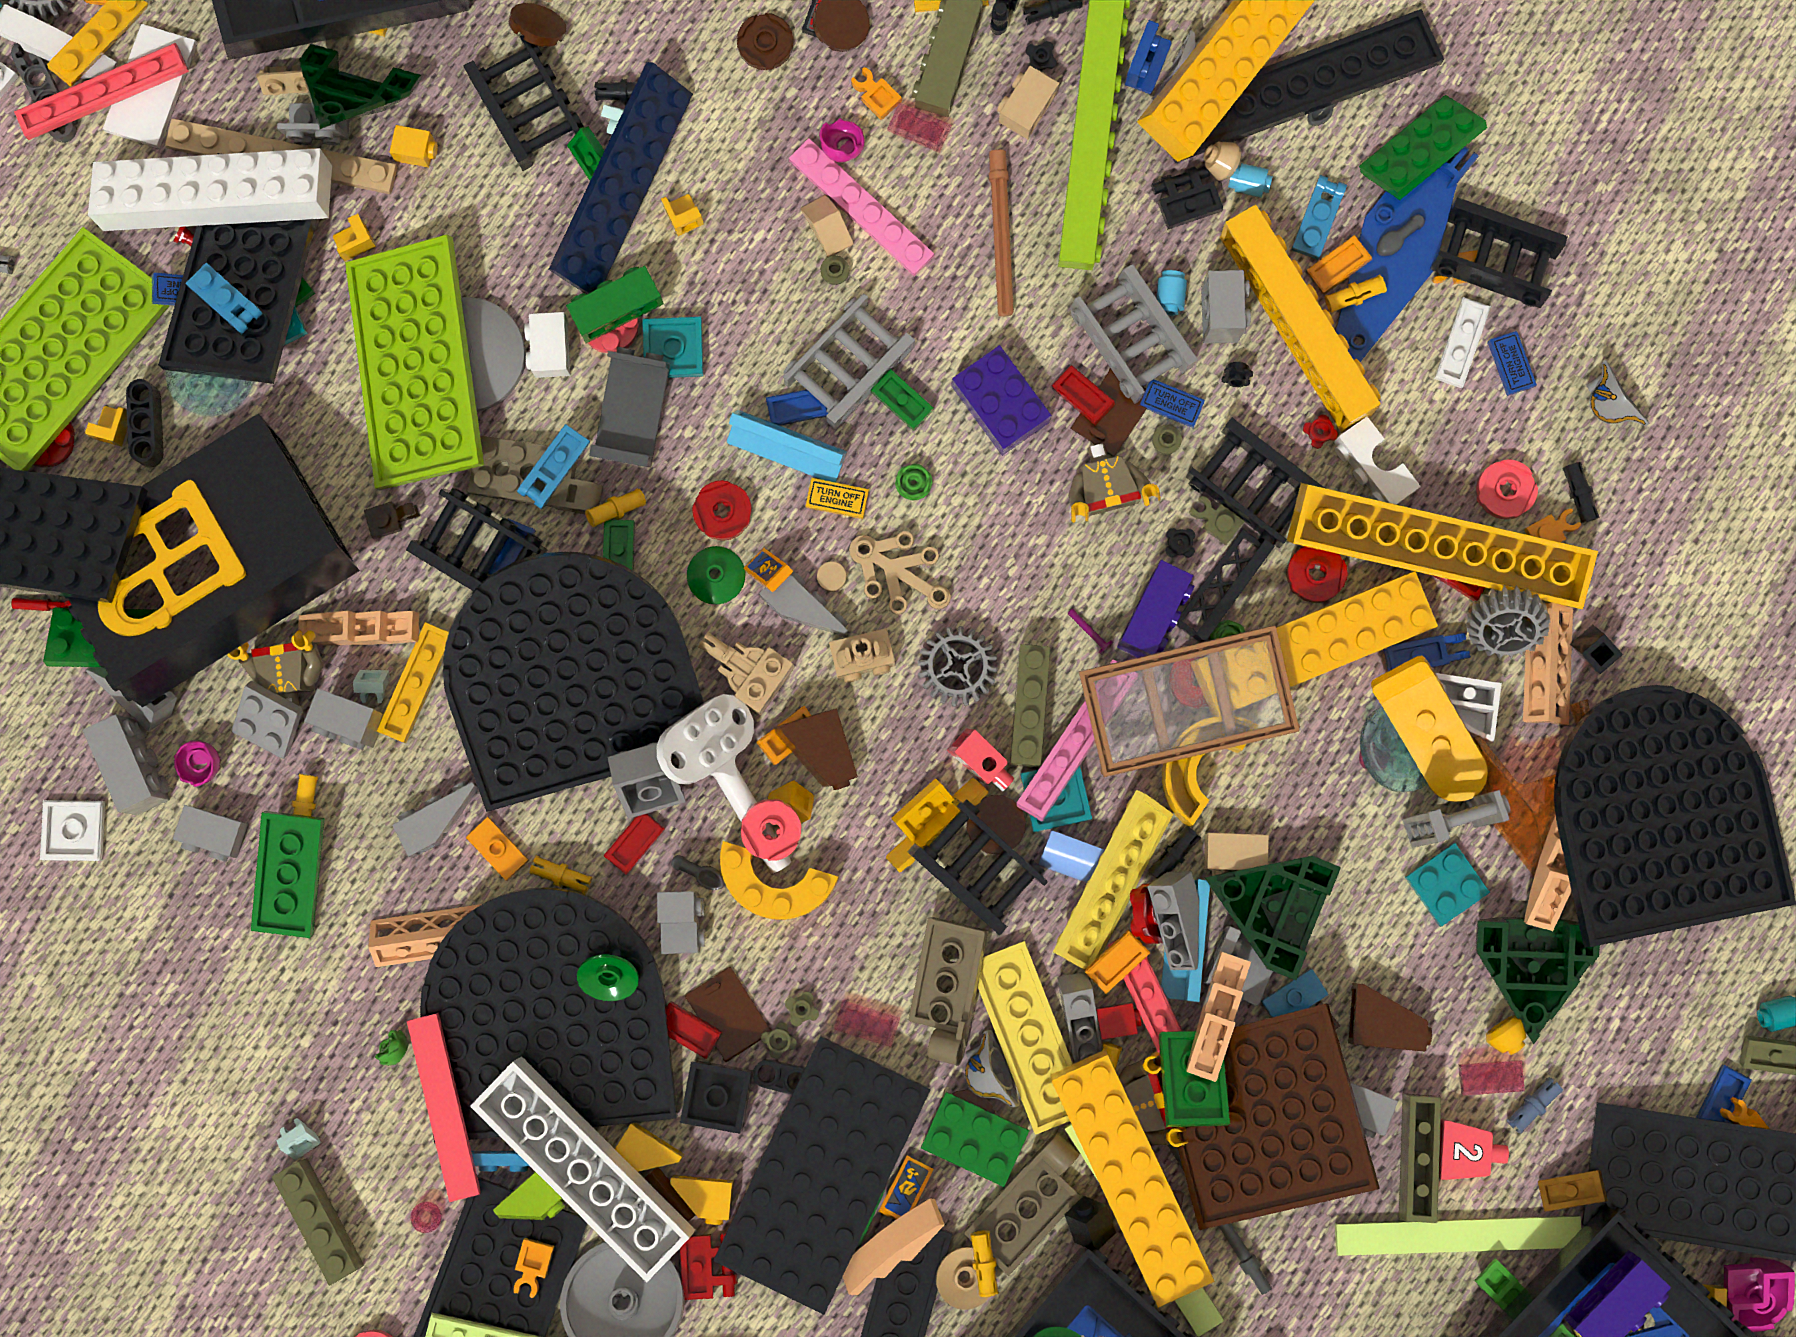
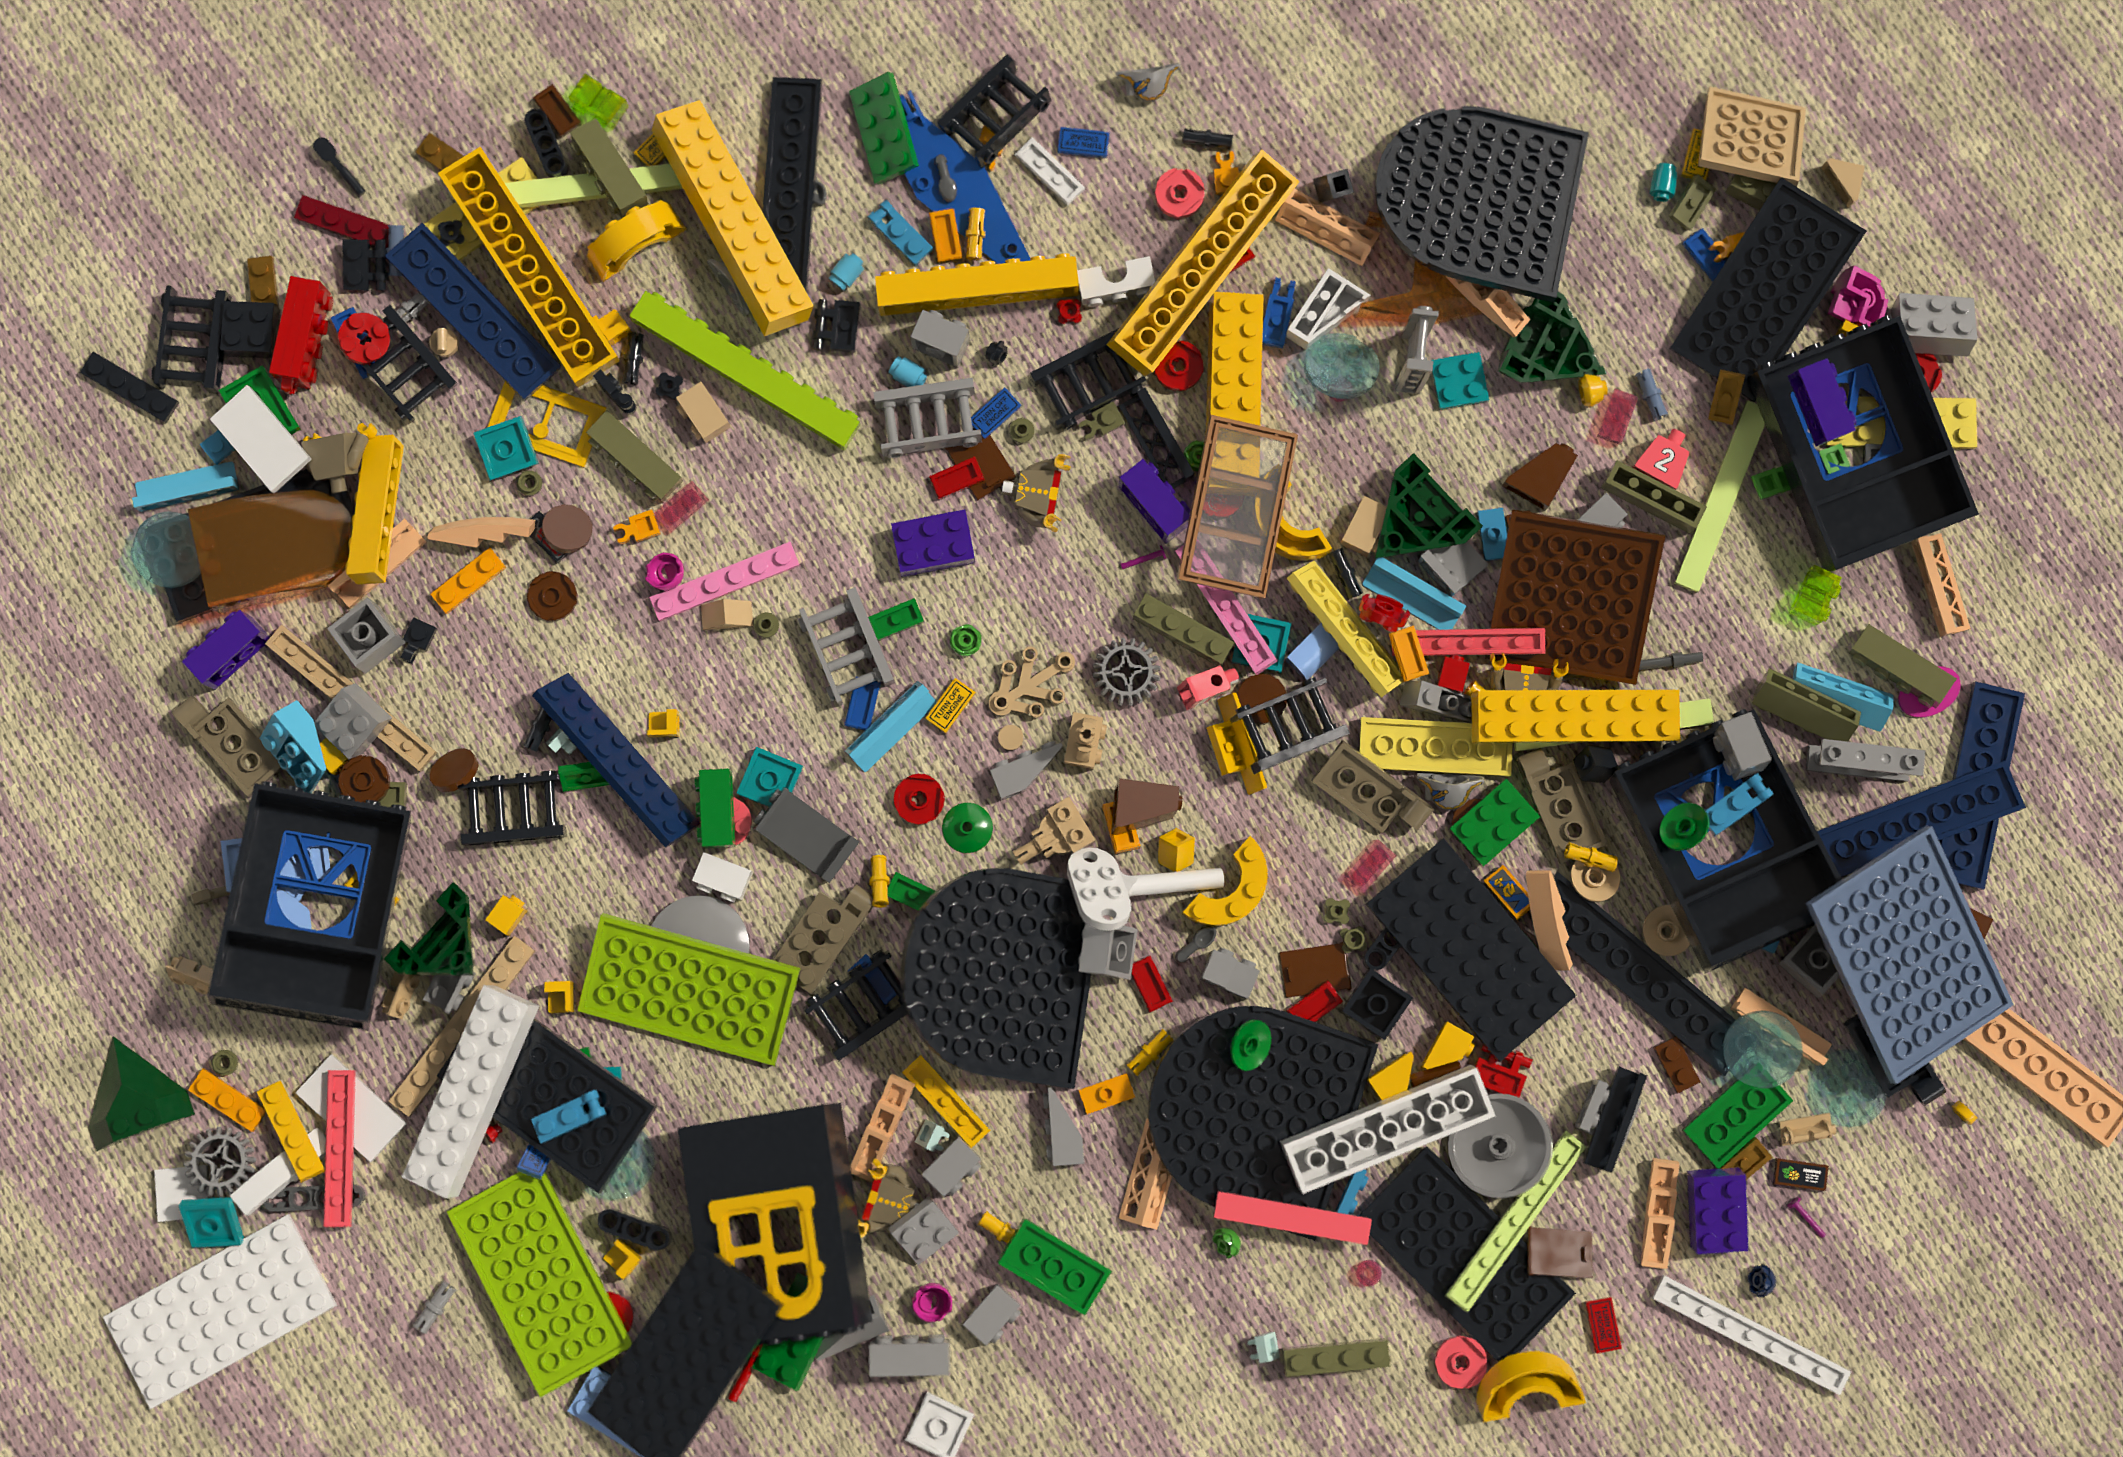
camera: 70 degrees left, 0 degrees up
(386, 518) = (803, 1069): dark brown plate -> none
(531, 1201) = (1394, 1180): lime slope -> none
(533, 1262) = (1440, 1200): light orange plate -> none
(554, 465) = (826, 912): dark azure plate -> none
(763, 845) = (1181, 880): coral plate -> none
(768, 570) = (985, 783): tile -> none
(998, 178) = (753, 464): nougat axle -> none
(1148, 59) = (713, 304): blue bracket -> none
(1174, 536) = (1105, 450): black plate -> none
(1177, 916) = (1395, 592): light grey slope -> none
(1188, 1097) = (1523, 635): green plate -> none
(1218, 1016) = (1485, 596): light nougat slope -> none
(1222, 159) = (821, 284): tan cone -> none
(1432, 730) = (1341, 336): yellow piece -> none
(1510, 629) = (1284, 241): light grey gear -> none

